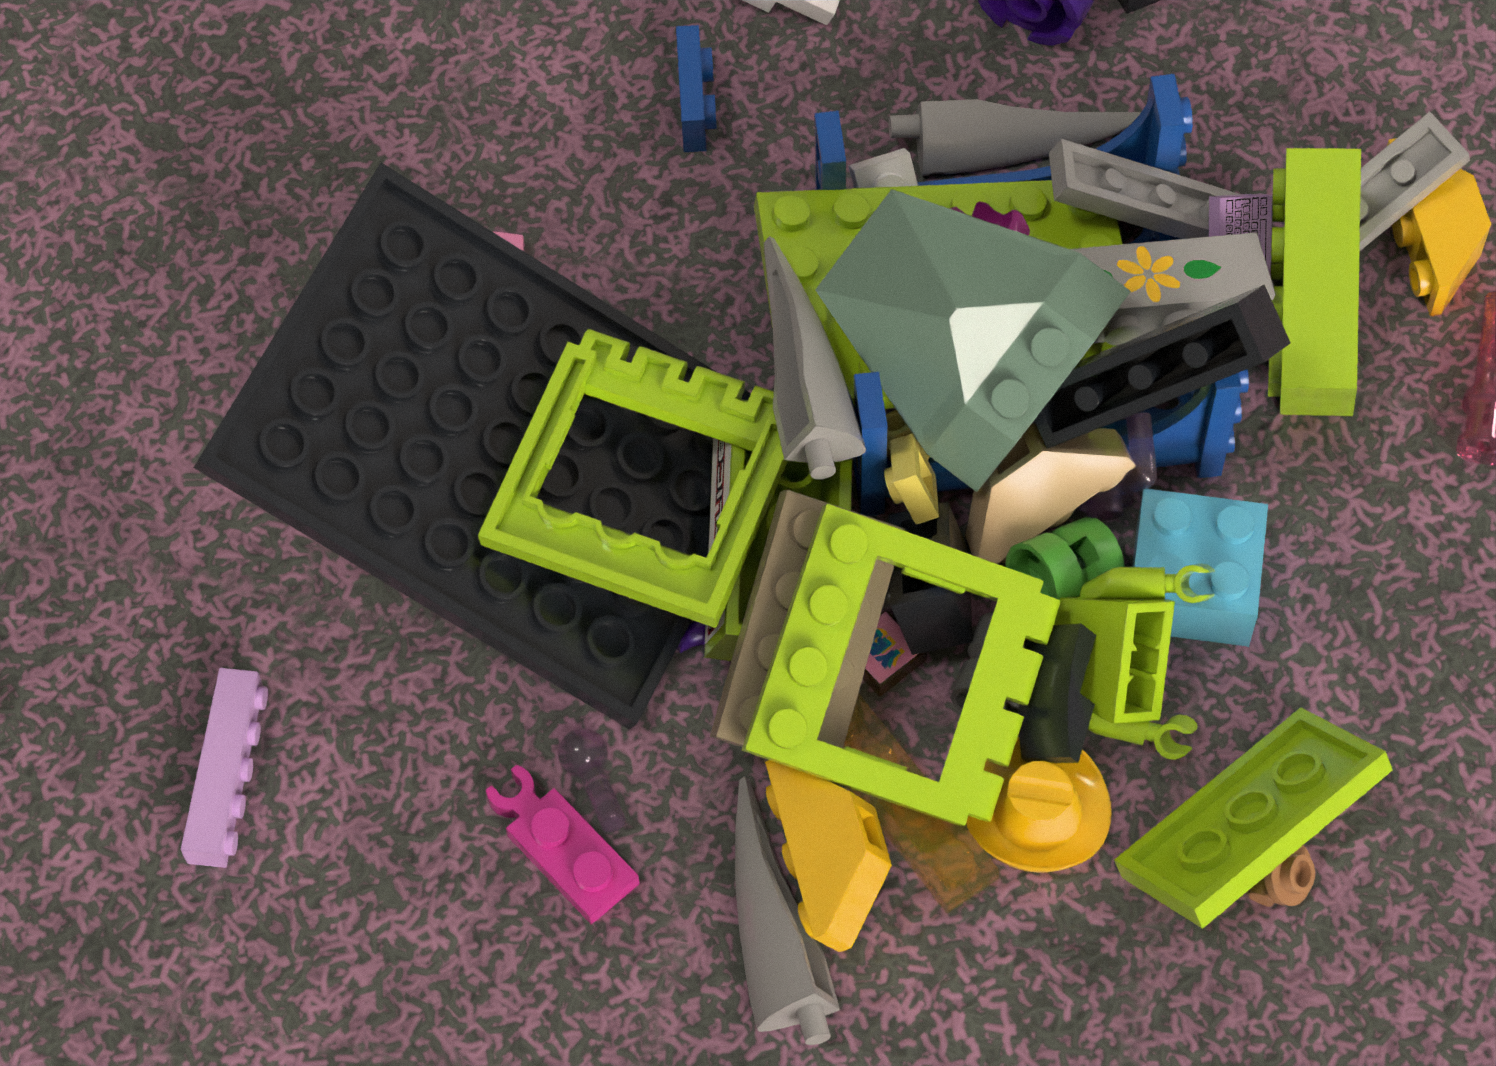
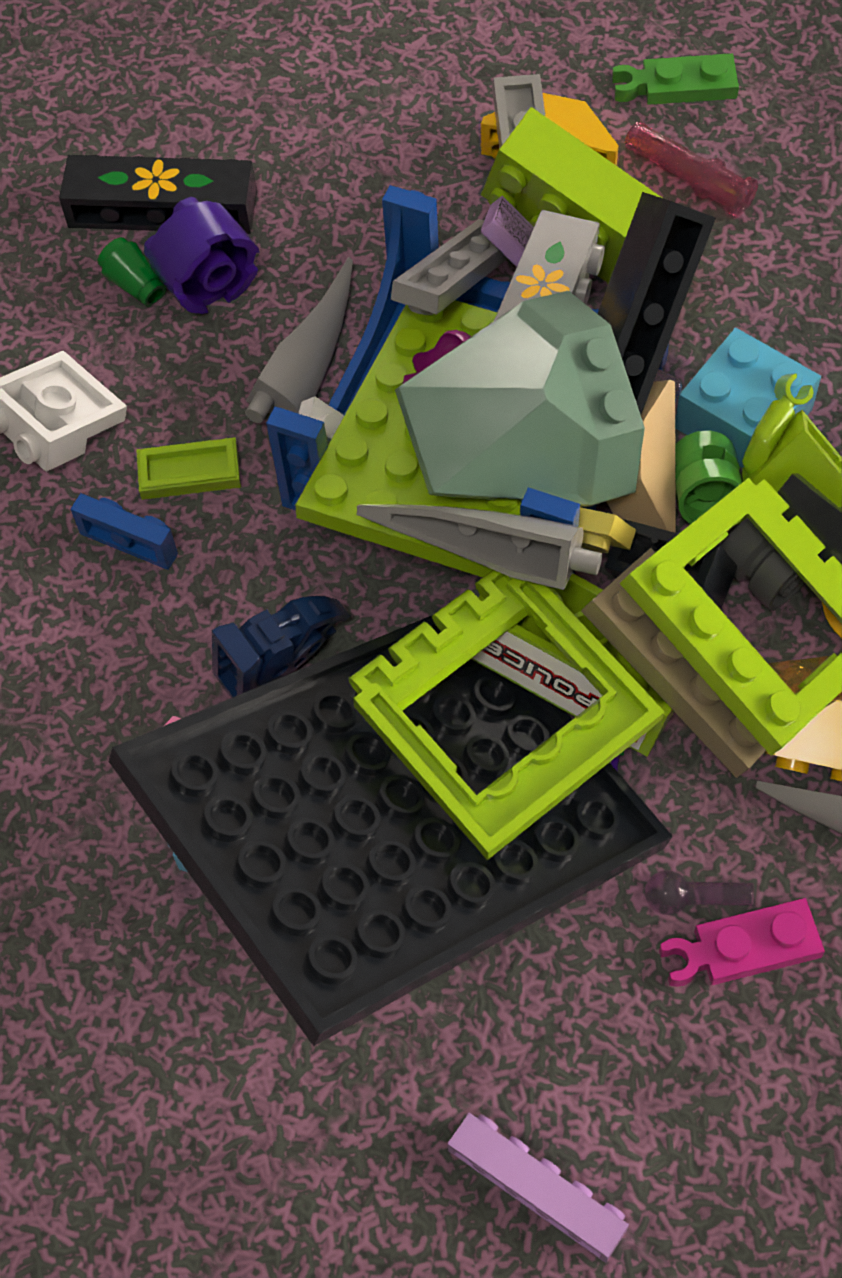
camera: 60 degrees left, 0 degrees up
(631, 275) = (272, 644): none -> dark blue piece
(793, 96) = (188, 468): none -> lime tile

